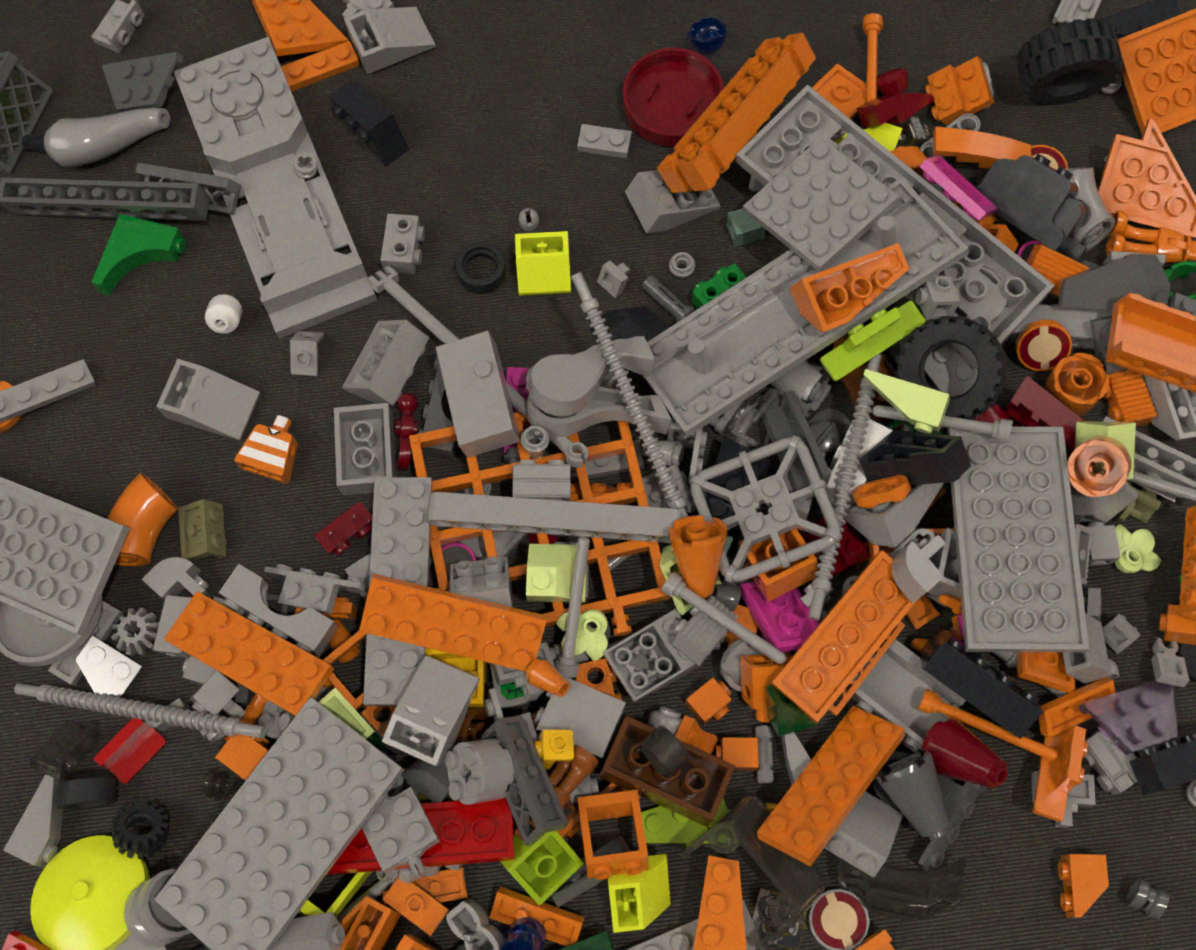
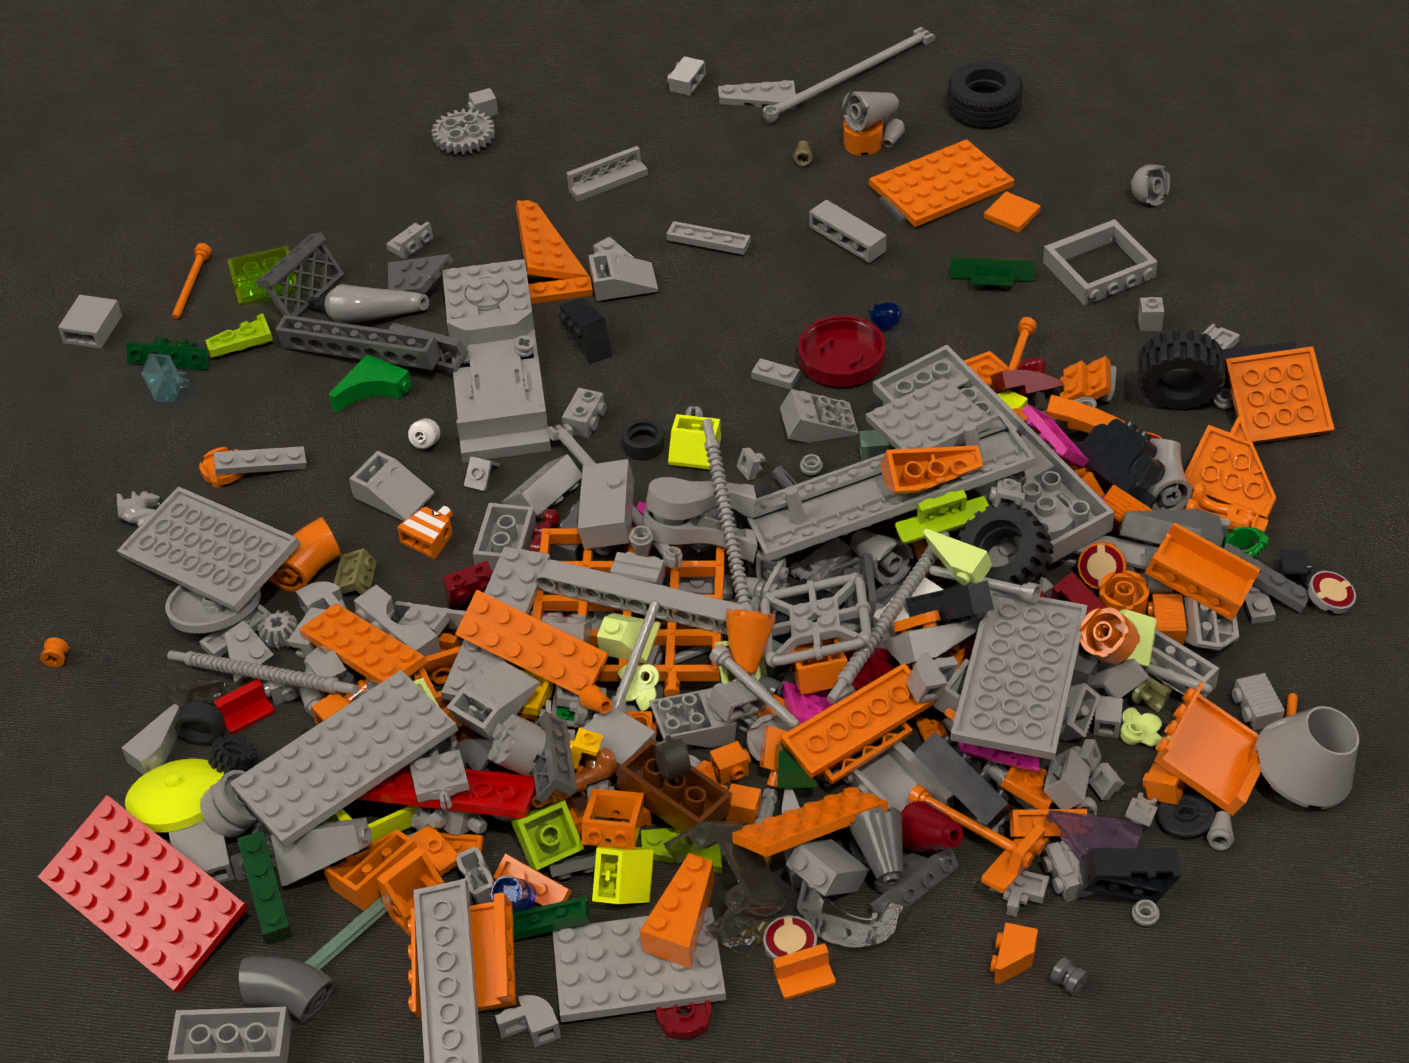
camera: 15 degrees right, 25 degrees down
(736, 114) = (858, 375): orange brick -> none

